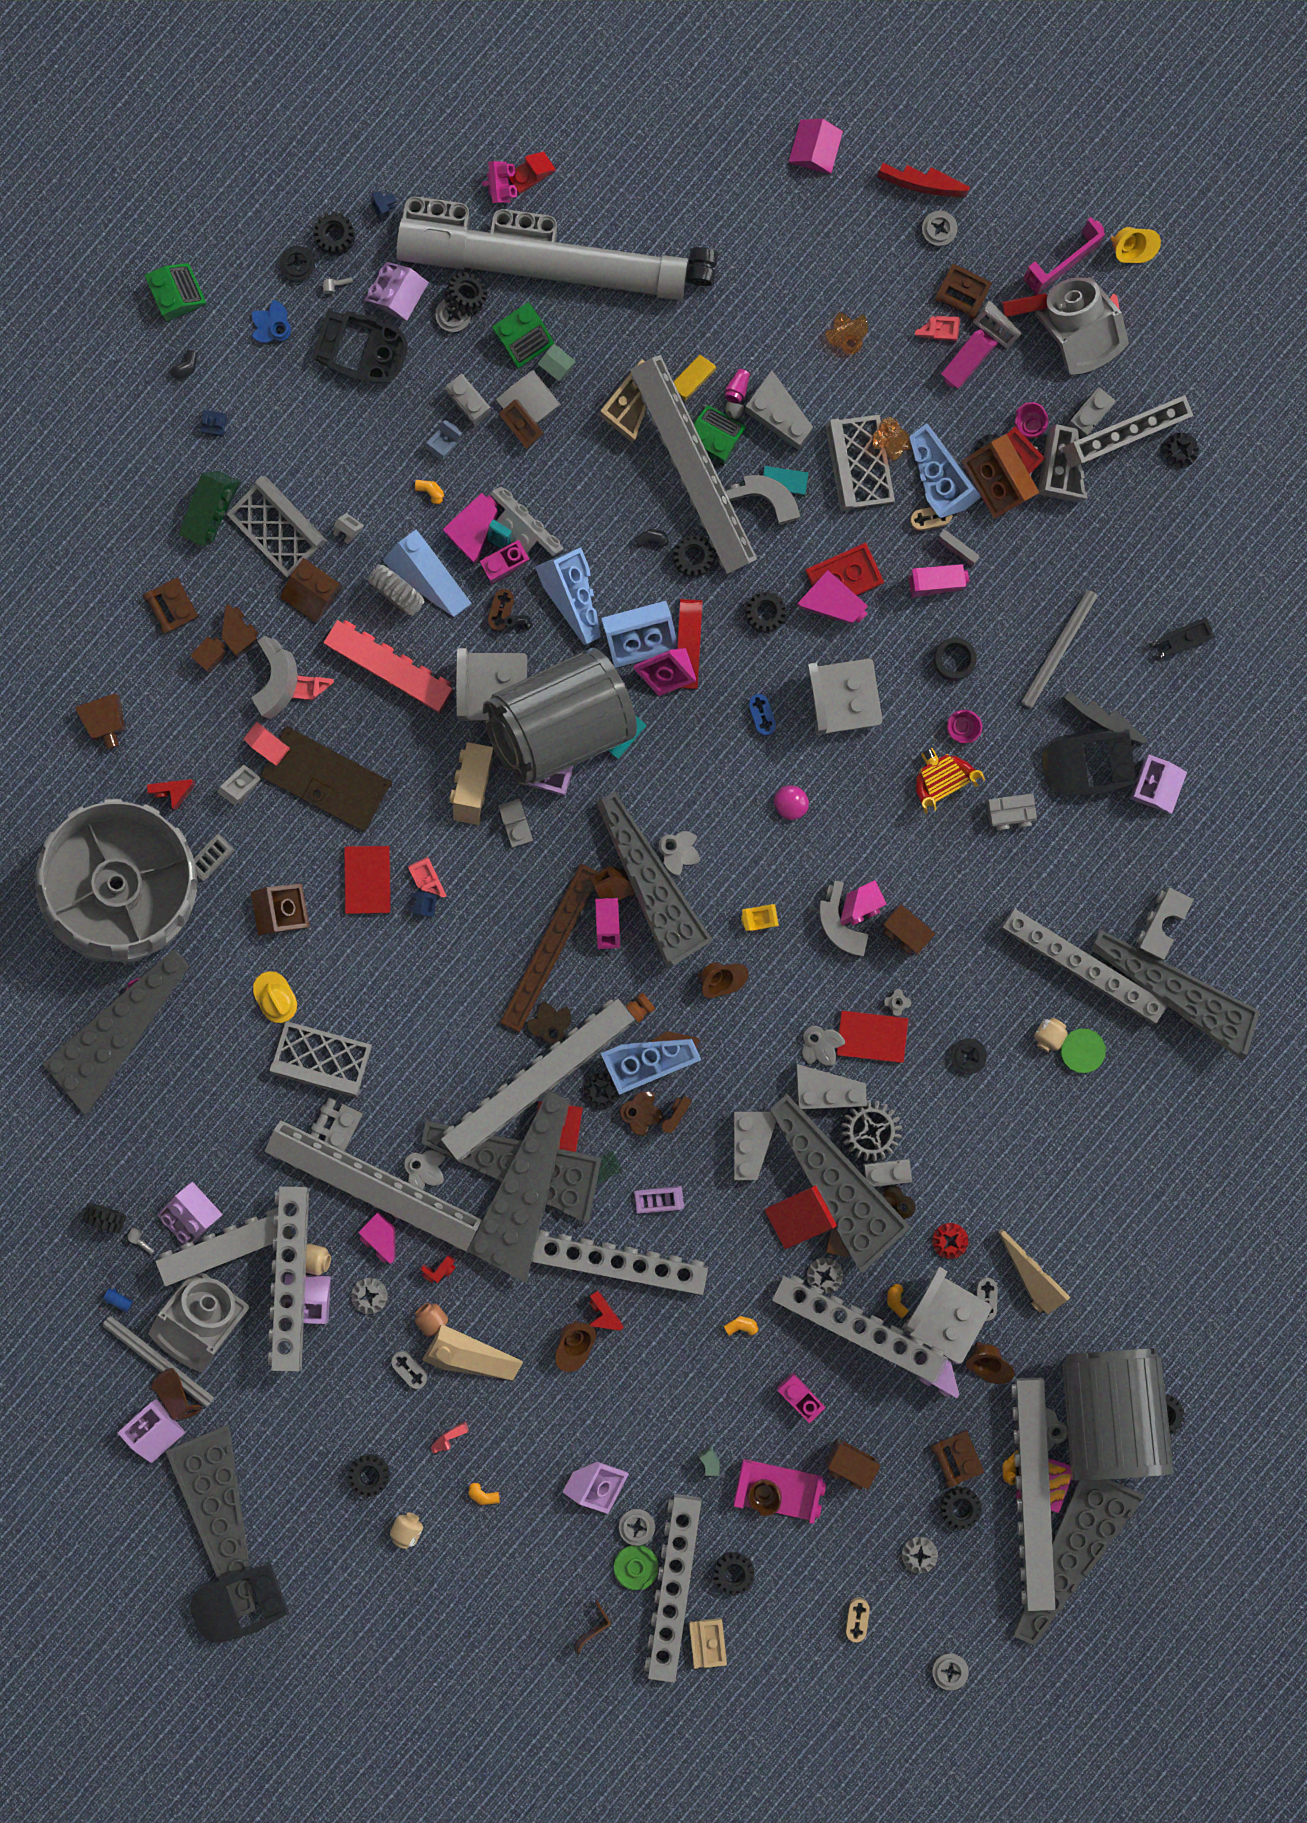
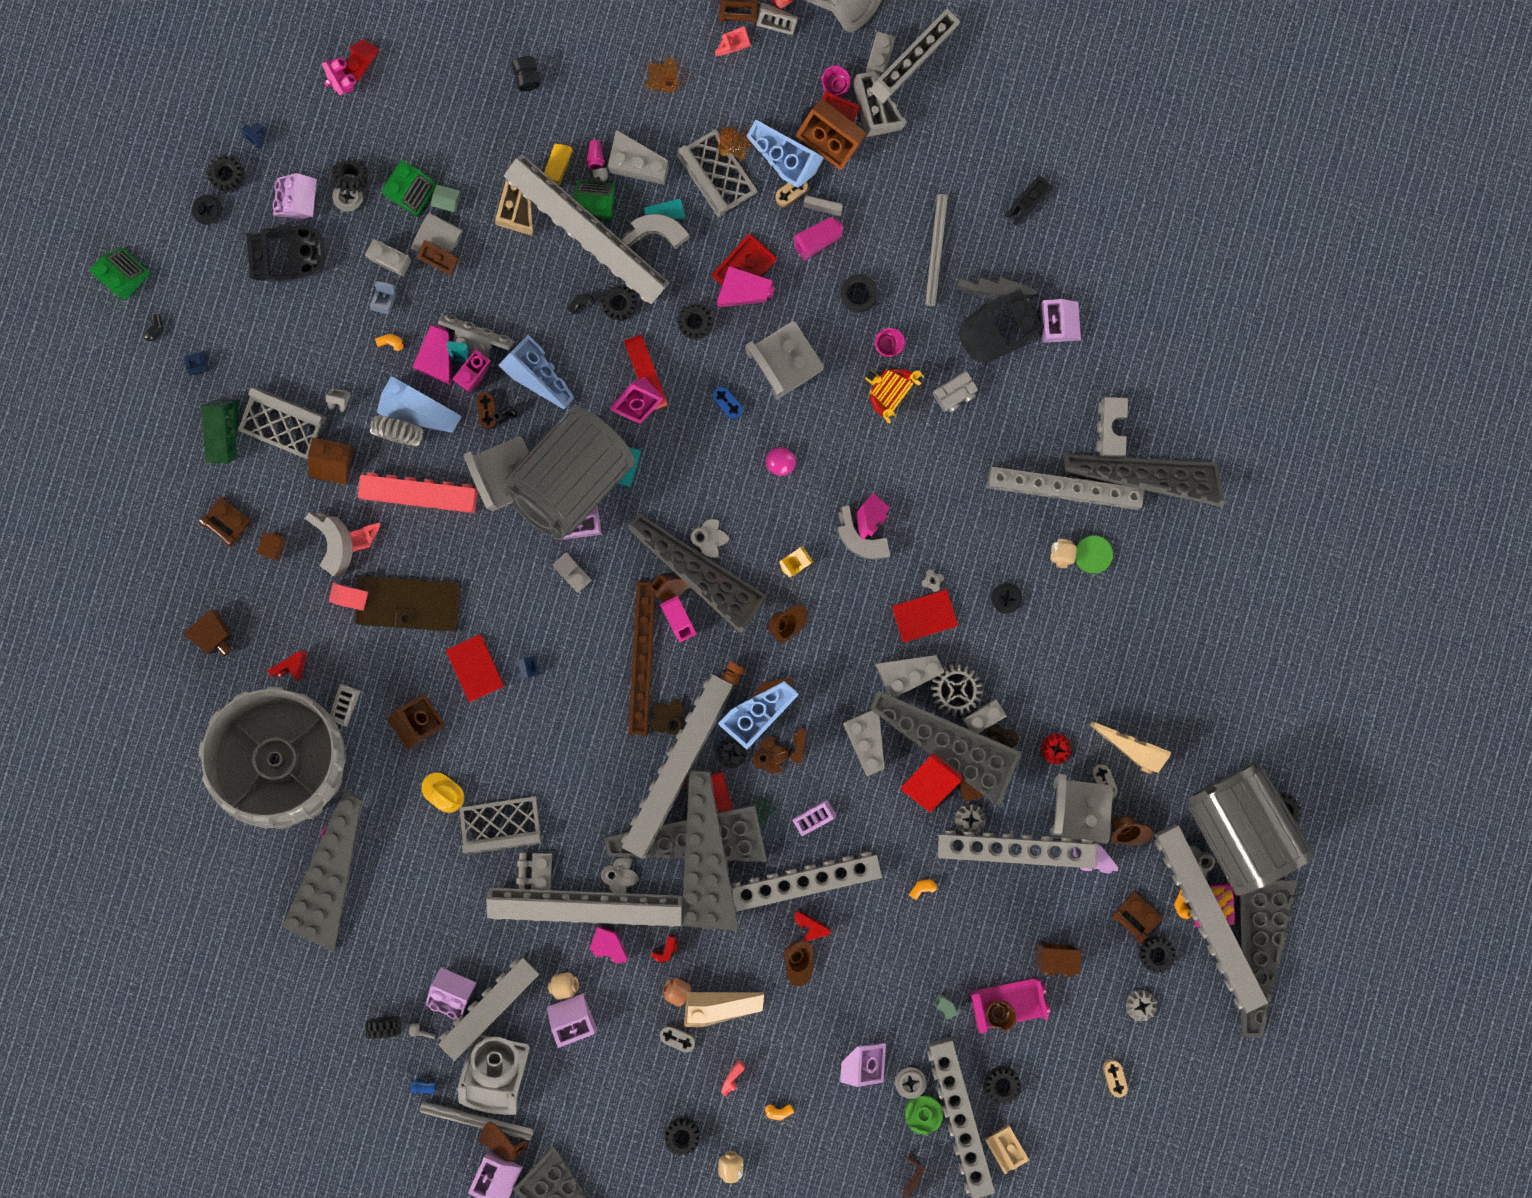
camera: 25 degrees left, 0 degrees up
(236, 633) = (286, 520): reddish brown slope -> none
(239, 785) = (341, 639): light grey slope -> none
(269, 322) = (206, 266): blue plate -> none
(276, 1359) = (581, 1075): light grey brick -> none
(329, 284) = (240, 214): light grey hand -> none
(373, 1286) = (620, 985): light grey gear -> none
(426, 877) = (520, 645): coral slope -> none
(471, 782) = (523, 556): tan wedge -> none
(528, 251) = (383, 121): light grey piece -> none
(640, 633) = (603, 381): light blue slope -> none
(800, 1397) = (994, 924): dark pink slope -> none
(823, 1048) = (890, 641): light grey plate -> none
(894, 1300) = (1033, 815): light orange arm -> none
(907, 930) = (915, 521): reddish brown brick -> none
(956, 1680) = (1213, 1090): light grey gear -> none
(969, 358) = (766, 54): dark pink slope -> none
(1180, 460) = (964, 62): black gear -> none

